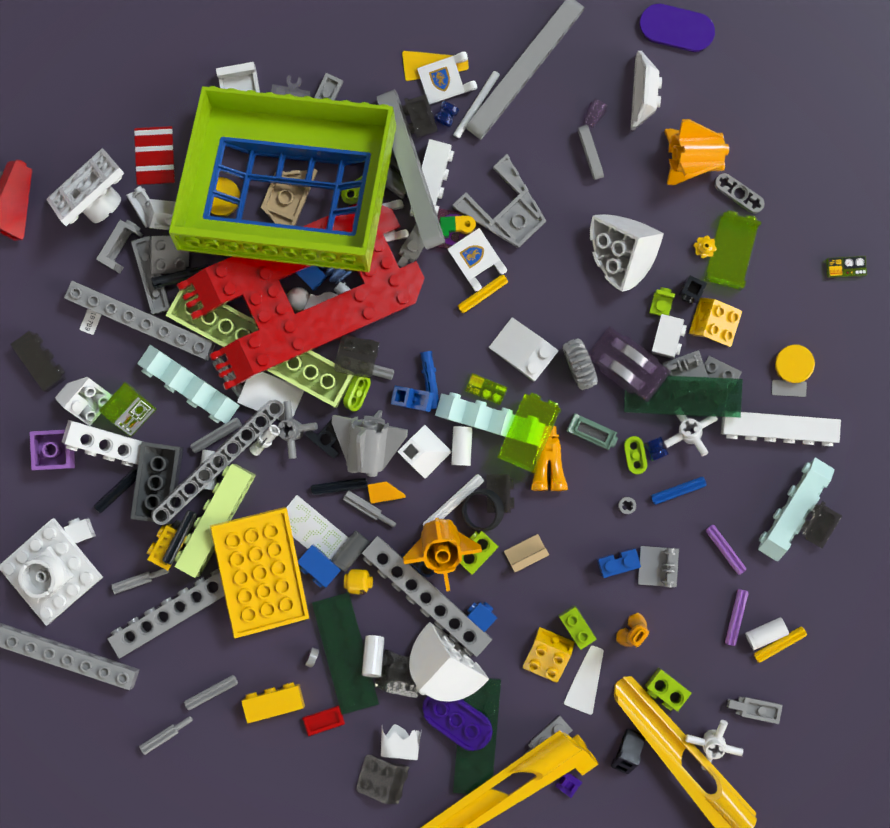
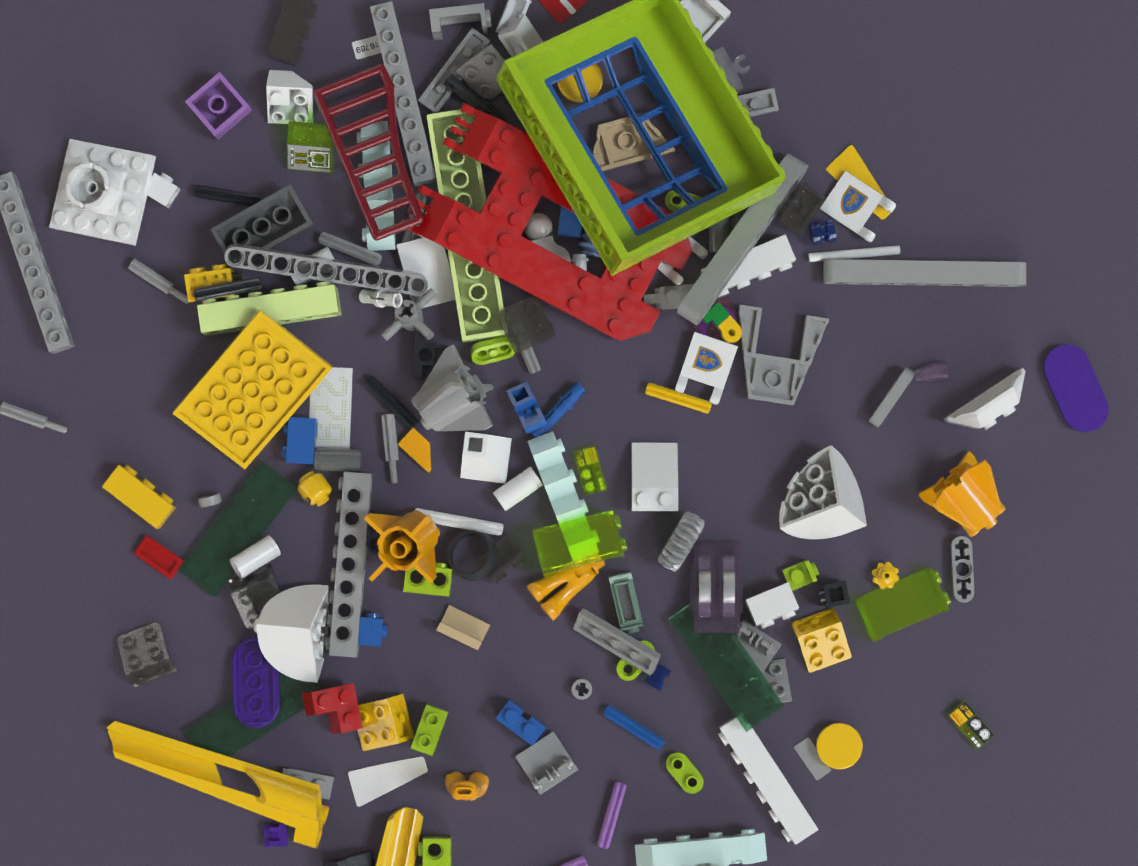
camera: 50 degrees right, 0 degrees up
(75, 430) = (253, 114): white brick -> none
(123, 646) = (85, 315): light grey brick -> none
(177, 358) = (392, 136): none -> dark red bar
(211, 692) = (104, 430): light grey axle -> none
(399, 744) = (191, 646): white piece -> none
(513, 675) = (339, 703): none -> red brick
(614, 457) = (617, 641): none -> light grey plate
(684, 434) = (701, 687): white bar -> none
(735, 479) = (685, 772): none -> lime plate

